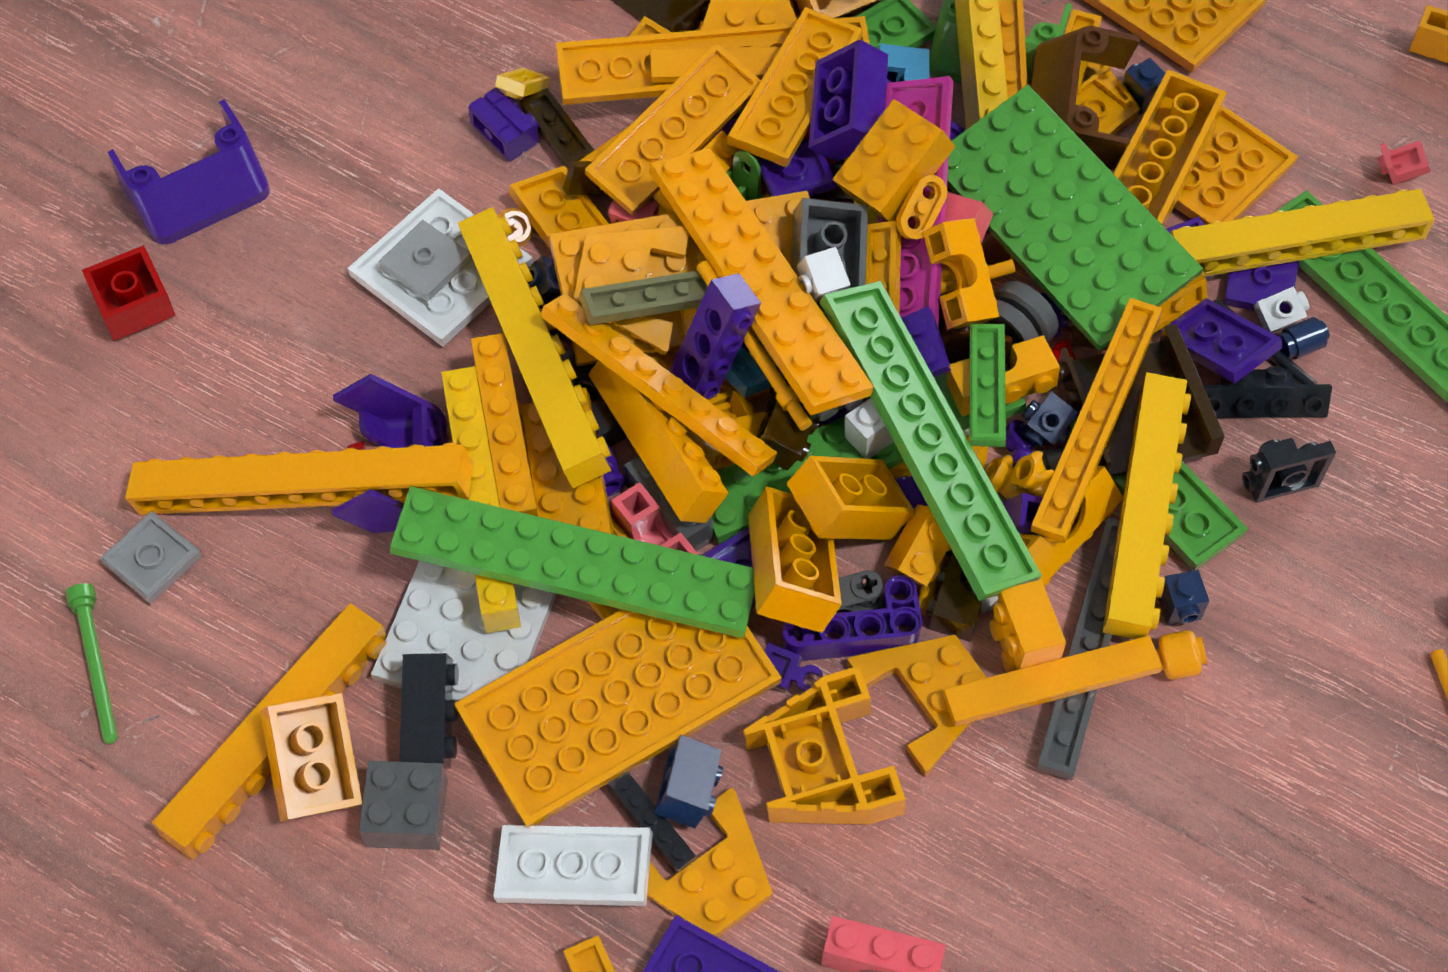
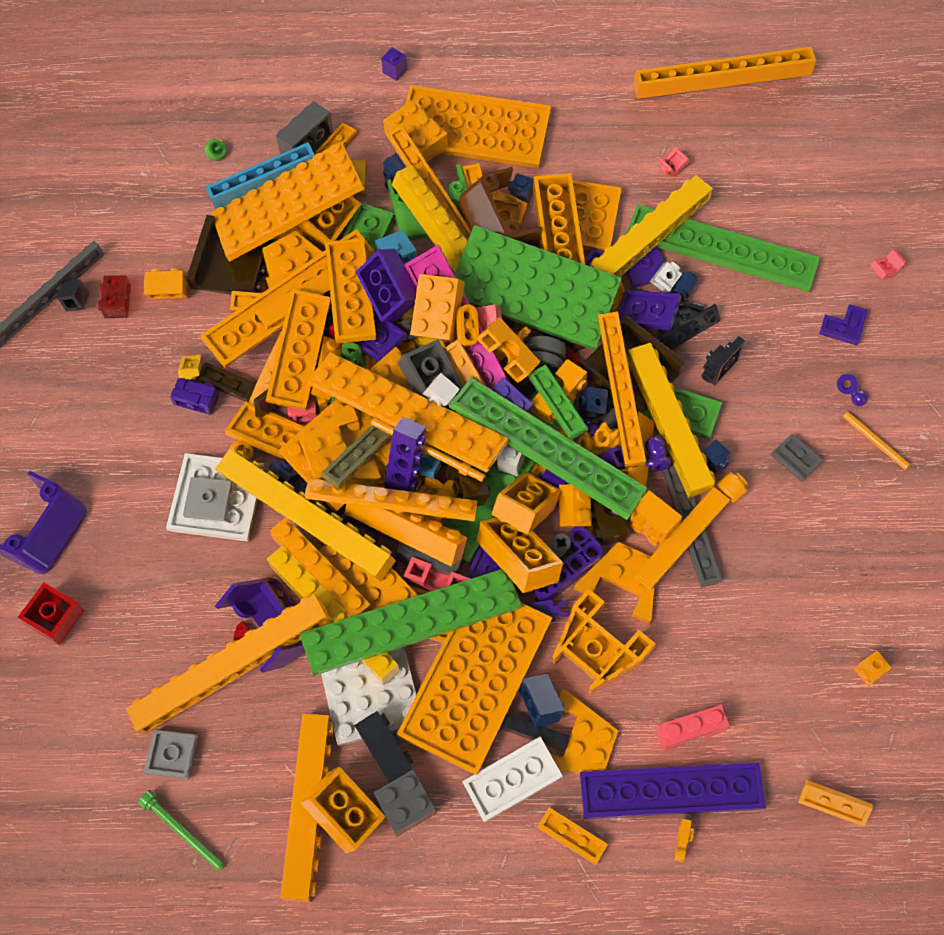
camera: 30 degrees left, 5 degrees up
(1096, 539) = (657, 451): none -> dark purple animal
(1313, 670) = (796, 457): none -> dark grey plate

